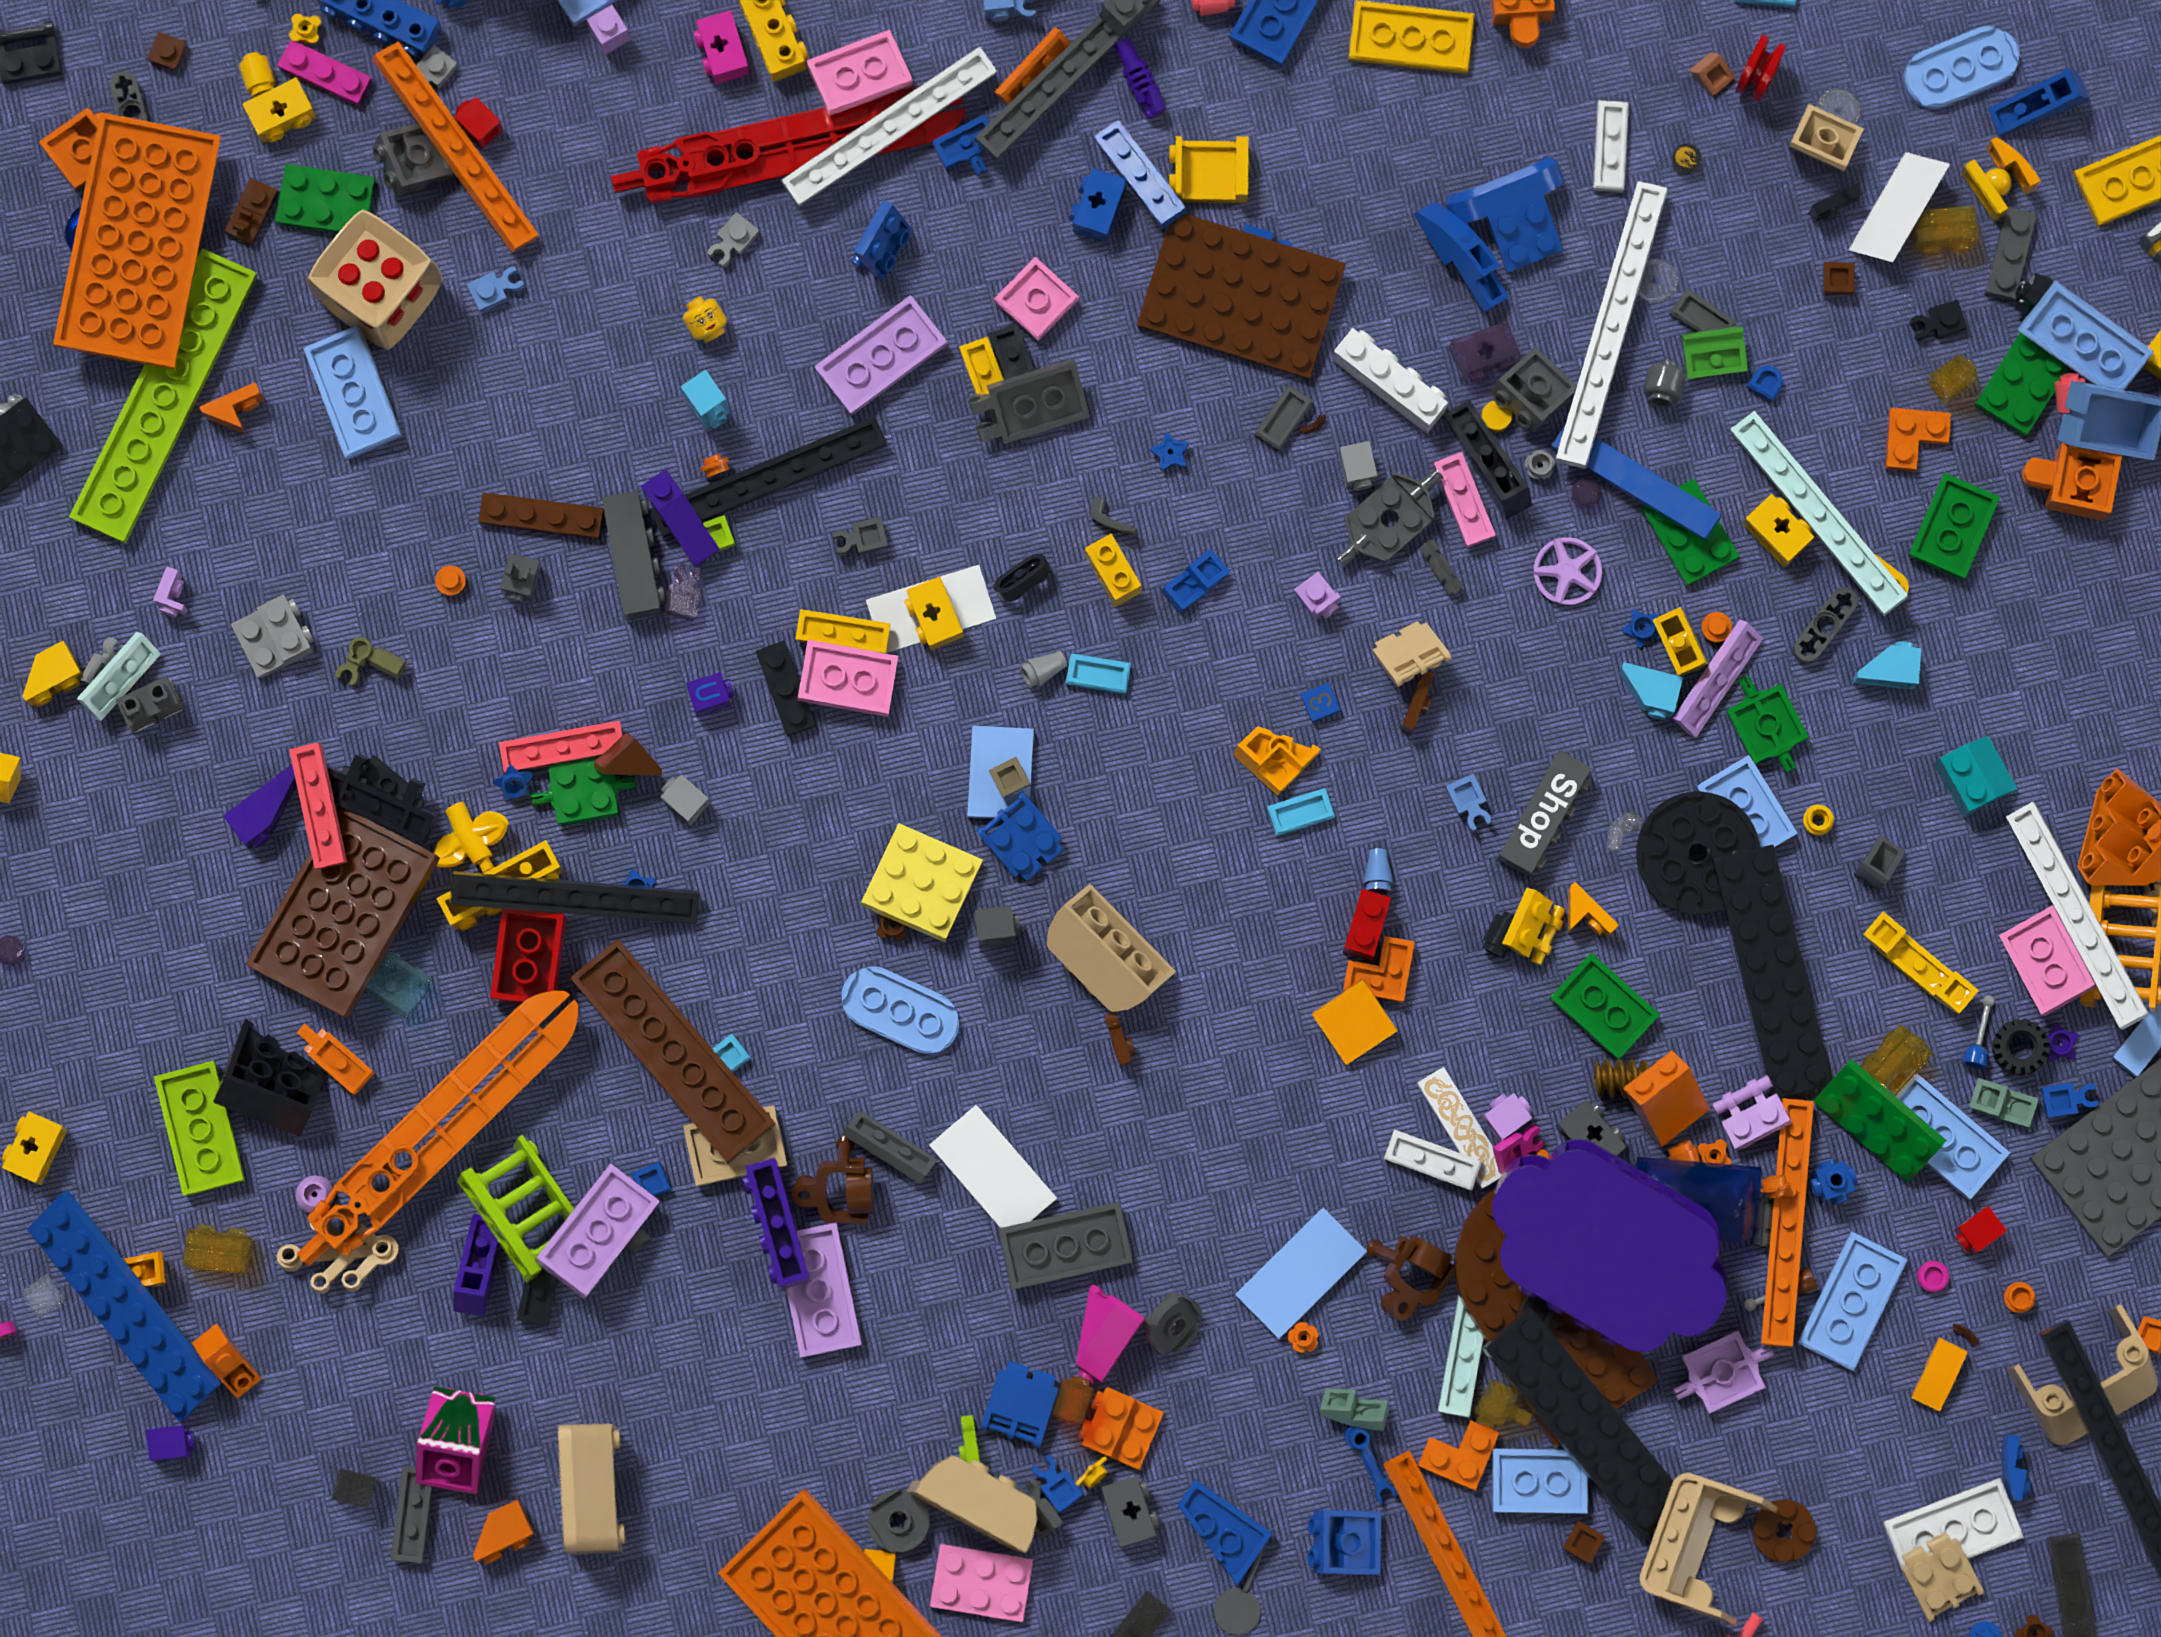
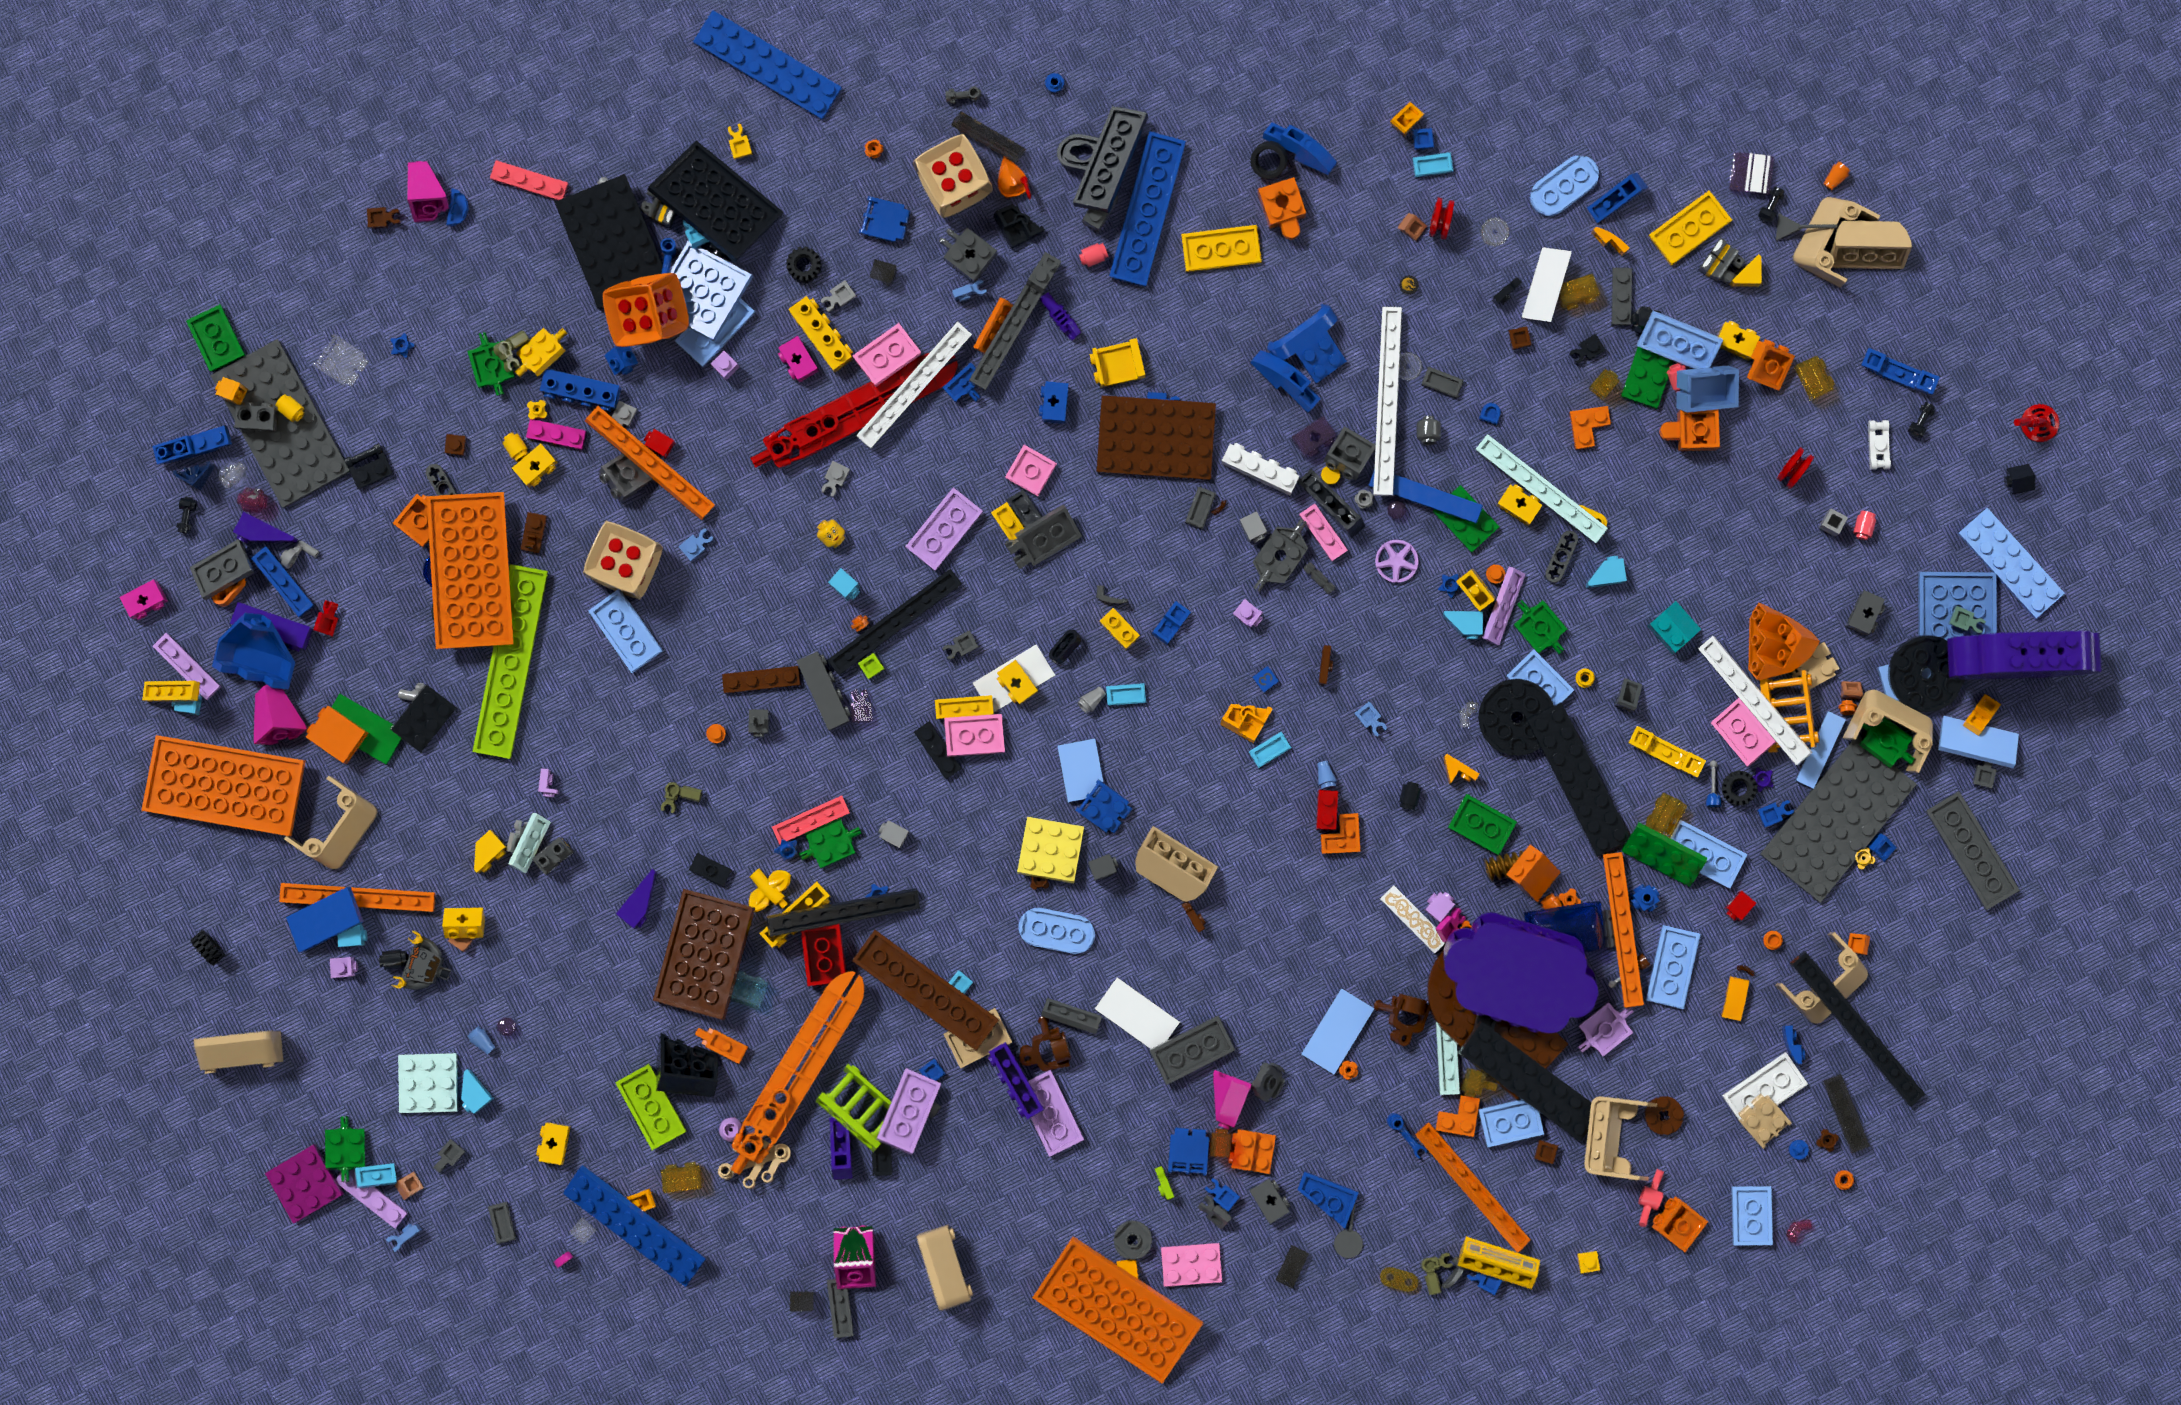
camera: 10 degrees left, 5 degrees up
(170, 1443) = (683, 1301): dark purple brick -> none
(225, 409) = (550, 661): orange slope -> none
(226, 1361) = (704, 1243): orange slope -> none
(273, 636) = (616, 794): light grey plate -> none
(318, 806) = (672, 894): coral plate -> none
(322, 198) = (576, 514): green plate -> none
(399, 813) = (720, 885): black hinge -> none
(502, 1530) = (896, 1304): orange slope -> none
(627, 758) = (852, 818): reddish brown slope -> none
(679, 517) = (847, 662): dark purple slope -> none
(710, 694) = (892, 765): dark purple brick -> none
(882, 241) = (927, 458): blue plate -> none
(979, 1501) = (1179, 1217): tan windscreen -> none
(1009, 777) = (1088, 773): dark tan plate -> none
(1093, 1474) = (1243, 1183): yellow plate -> none
(1140, 174) = (1075, 377): plate -> none
(1170, 444) = (1131, 546): blue plate -> none
(1345, 1542) = (1403, 1187): blue plate -> none
(1347, 1409) = (1387, 1107): sand green slope -> none
(1354, 1021) = (1333, 871): light orange tile -> none
(1410, 652) = (1313, 636): tan plate -> none
(1433, 1160) = (1401, 943): white tile -> none
(1527, 924) = (1424, 785): yellow plate -> none
(1544, 814) = (1418, 714): dark grey brick -> none
(1591, 1116) = (1488, 894): dark grey brick -> none
(1610, 146) = (1360, 288): white tile -> none
(1714, 352) = (1454, 403): bright green plate -> none
(1756, 1121) = (1590, 872): lavender plate -> none
(1774, 1186) = (1610, 910): orange plate -> none
(1826, 137) = (1491, 252): tan slope -> none
(1932, 1276) = (1717, 940): dark pink tile -> none
(1953, 526) = (1625, 476): green plate -> none
(1988, 187) = (1598, 258): yellow tile -> none
(2004, 1104) = (1737, 824): sand green slope -> none

